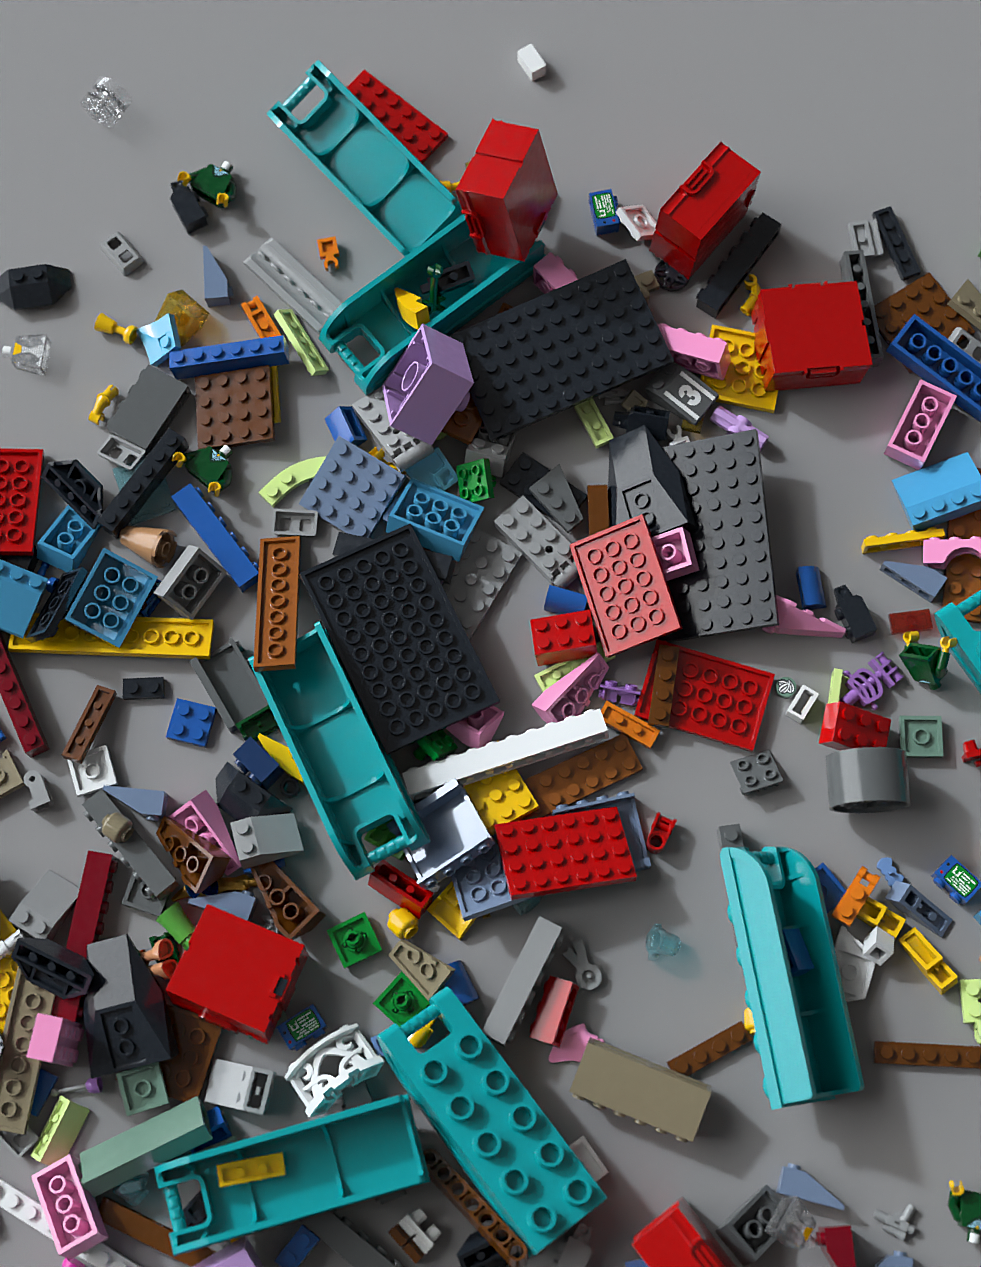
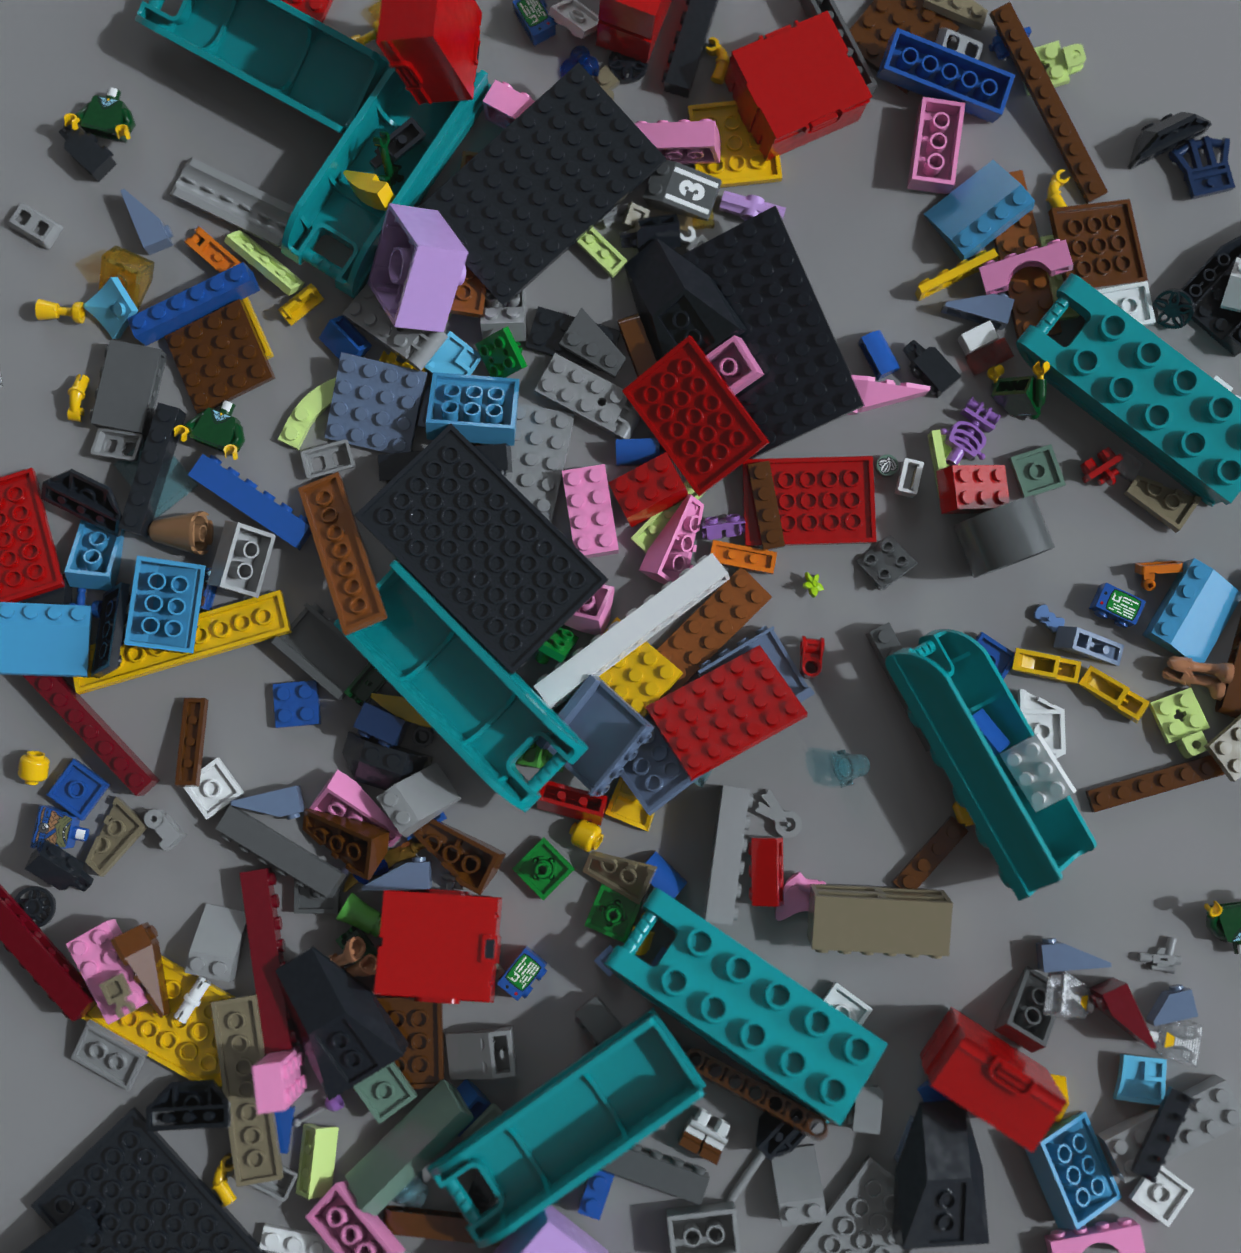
camera: 25 degrees left, 10 degrees up
(53, 967) = (249, 1005): black wedge -> none
(117, 827) = (261, 841): dark tan head -> none
(143, 688) = (233, 685): black plate -> none
(251, 1169) = (525, 1138): yellow tile -> none
(319, 386) = (301, 304): none -> yellow hinge
(328, 250) = (257, 153): orange plate -> none
(360, 1071) = (598, 997): white fence -> none
(506, 640) = (590, 511): none -> bright pink brick
(635, 262) = (588, 62): none -> clear blue plate
(683, 769) = (812, 584): none -> lime plant
(830, 1002) = (1037, 772): none -> white plate
(855, 897) = (1026, 657): orange plate -> none
(878, 946) = (1063, 697): white brick -> none
(904, 601) = (978, 337): none -> white piece

